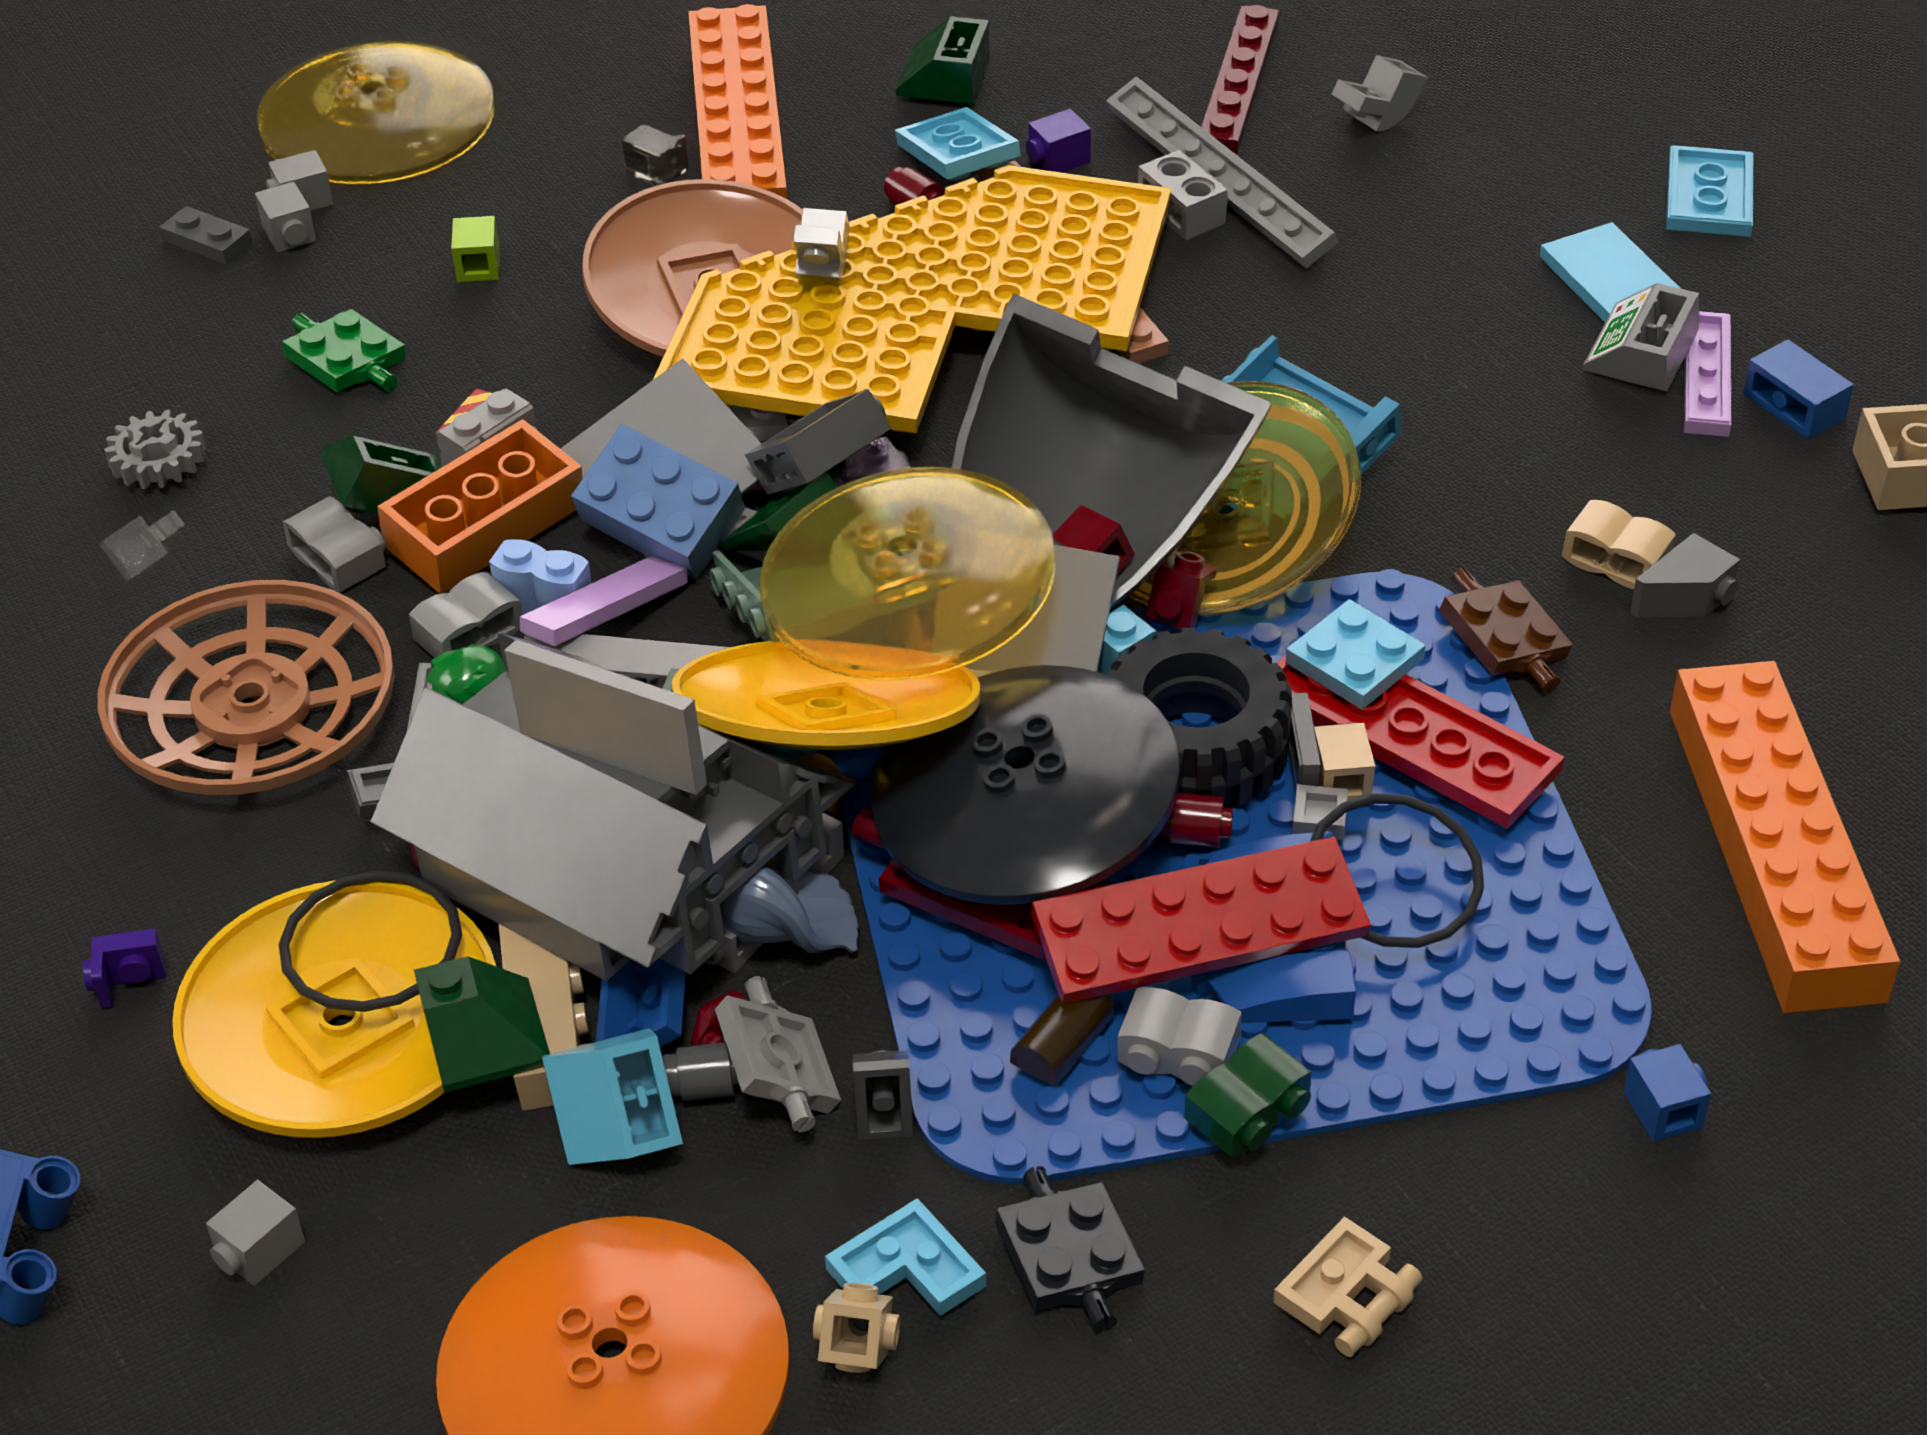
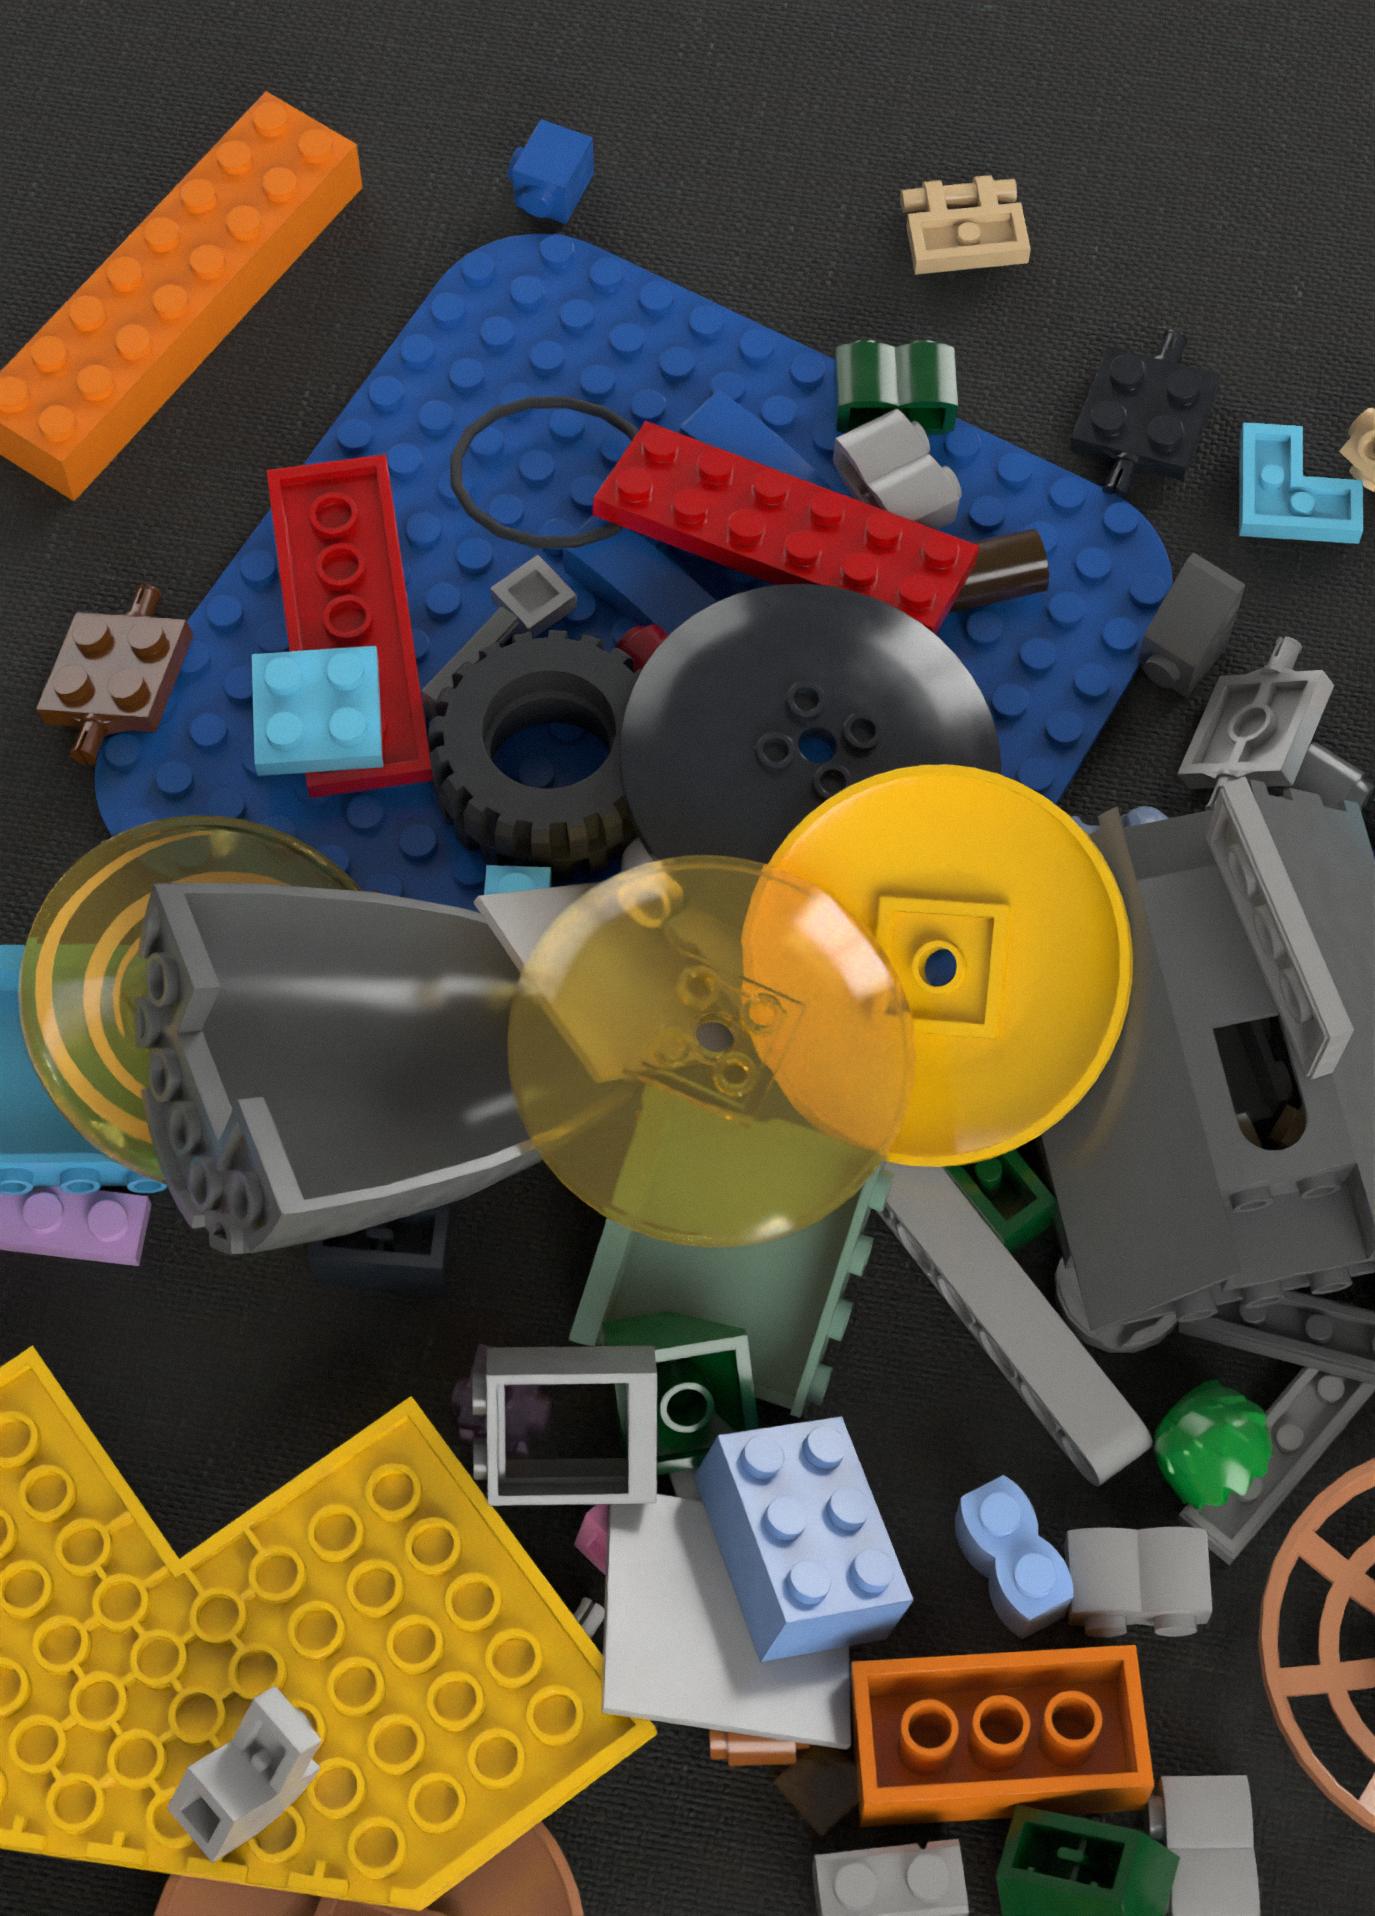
camera: 140 degrees left, 20 degrees up
(603, 600) = (985, 1446): lavender tile -> none
(1094, 533) = (425, 1035): dark red brick -> none
(1345, 758) = (452, 617): tan brick -> none

